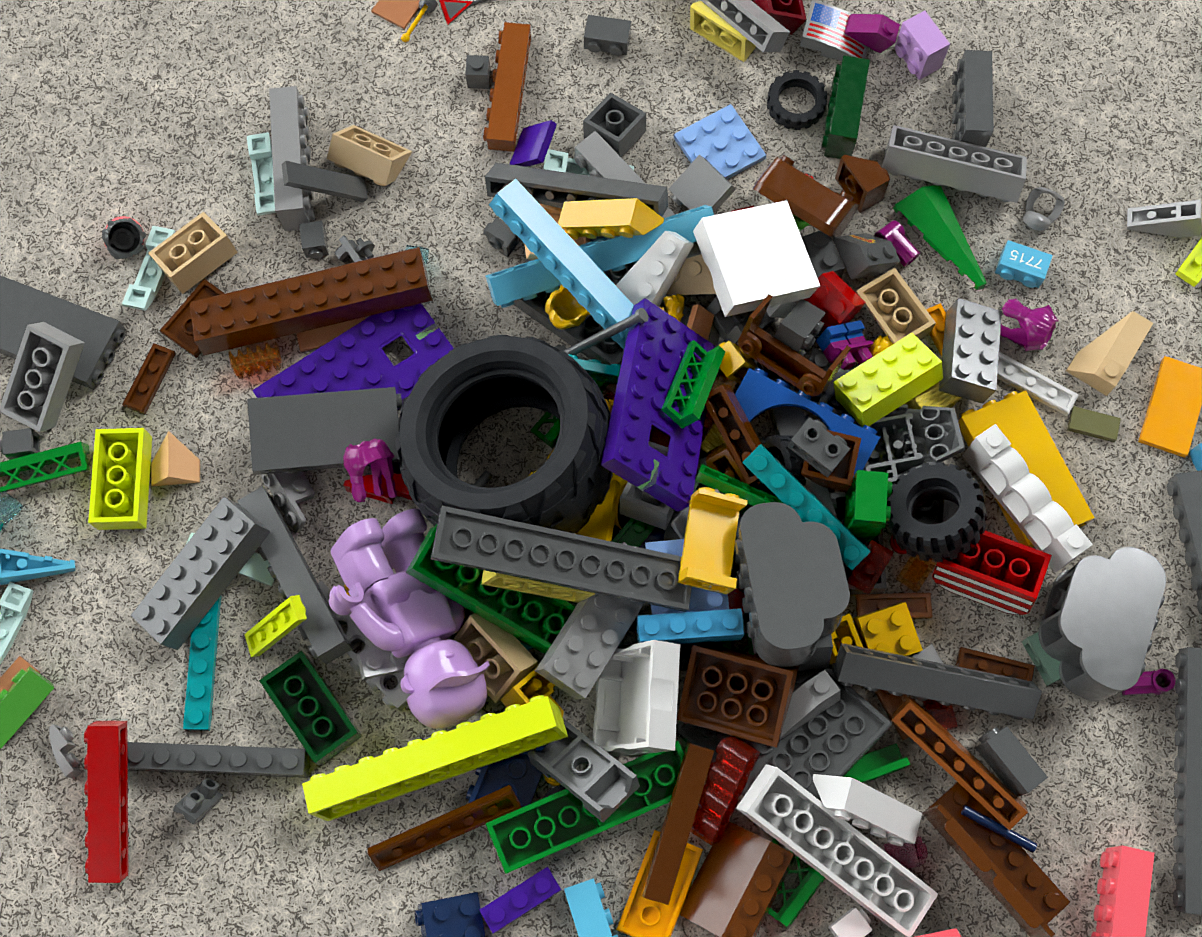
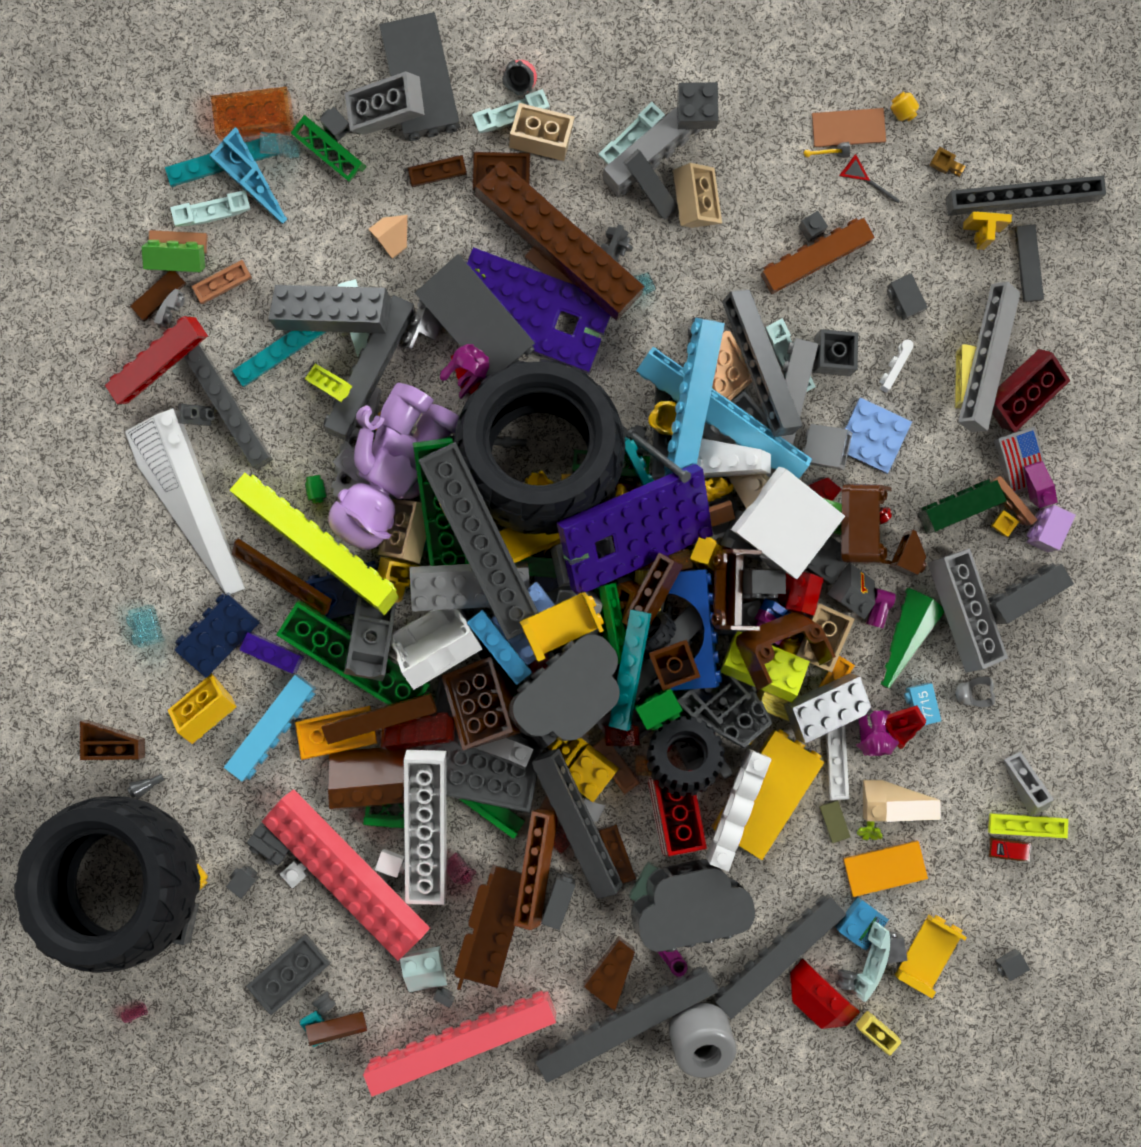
camera: 55 degrees right, 15 degrees up
(40, 757) = (155, 296): none -> reddish brown tile
(82, 674) = (222, 282): none -> nougat plate
(120, 479) = (356, 207): neon yellow brick -> none
(239, 874) = (174, 473): none -> white wedge
(255, 361) = (495, 233): clear orange piece -> none
(285, 86) = (697, 105): none -> dark grey brick
(310, 708) = (296, 441): dark green brick -> none
(314, 239) = (608, 206): dark grey brick -> none
(376, 725) = (315, 489): none -> green brick
(533, 144) = (781, 306): dark purple tile -> none
(608, 218) = (748, 402): yellow slope -> none
(666, 83) = (896, 364): none -> white plate
(696, 388) = (664, 546): green fence -> none
(801, 80) = (964, 455): black tyre -> none
(819, 446) = (672, 654): dark grey brick -> none
(868, 808) = (462, 830): white slope -> none
(870, 365) = (757, 648): none -> reddish brown windscreen
(883, 62) = (1014, 503): none -> nougat plate
(888, 84) = (1004, 523): none -> yellow plate
(999, 828) = (511, 916): dark blue bar -> none
(1034, 287) = (904, 724): none -> red wing
(1126, 395) = (869, 831): none -> lime plant
(1126, 759) = (611, 972): none -> reddish brown wedge

